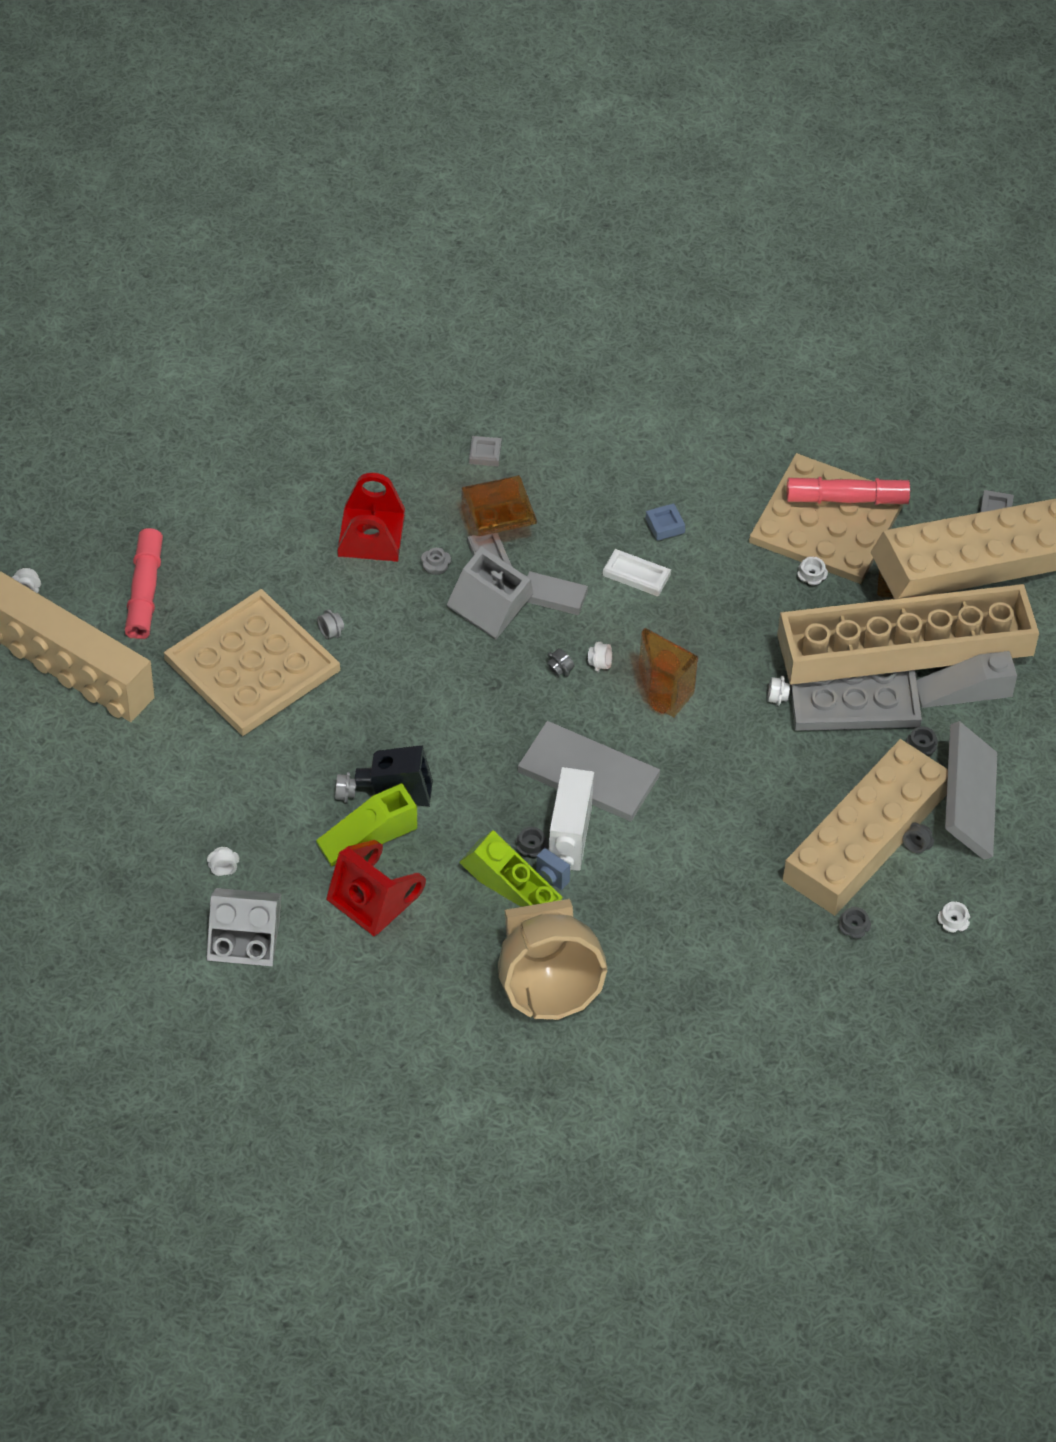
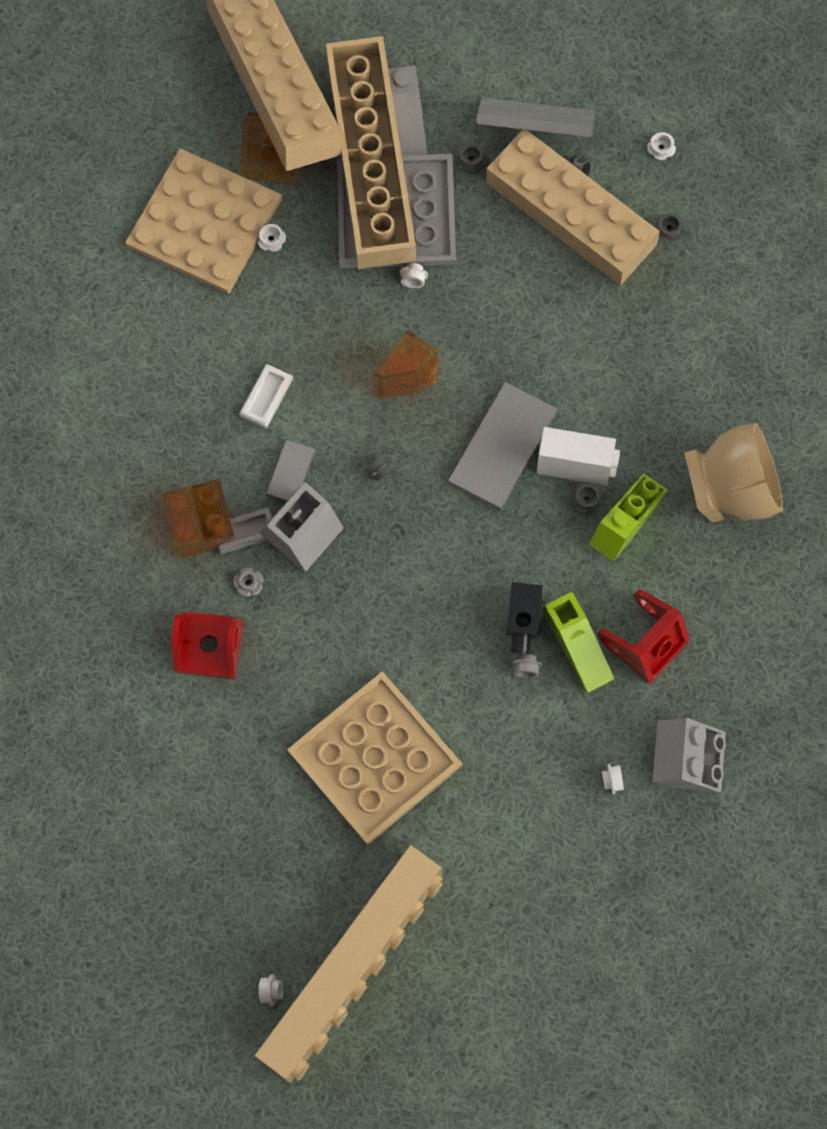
camera: 85 degrees left, 20 degrees up
(144, 582) = (273, 868): coral piece -> none
(330, 624) = (329, 682): light grey plate -> none
(485, 451) = (105, 534): light grey tile -> none
(553, 869) = (622, 478): sand blue plate -> none
(600, 656) = (371, 431): white plate -> none
(665, 522) = (208, 366): sand blue plate -> none
(848, 491) = (187, 195): coral piece -> none
(995, 500) = (199, 72): light grey plate -> none

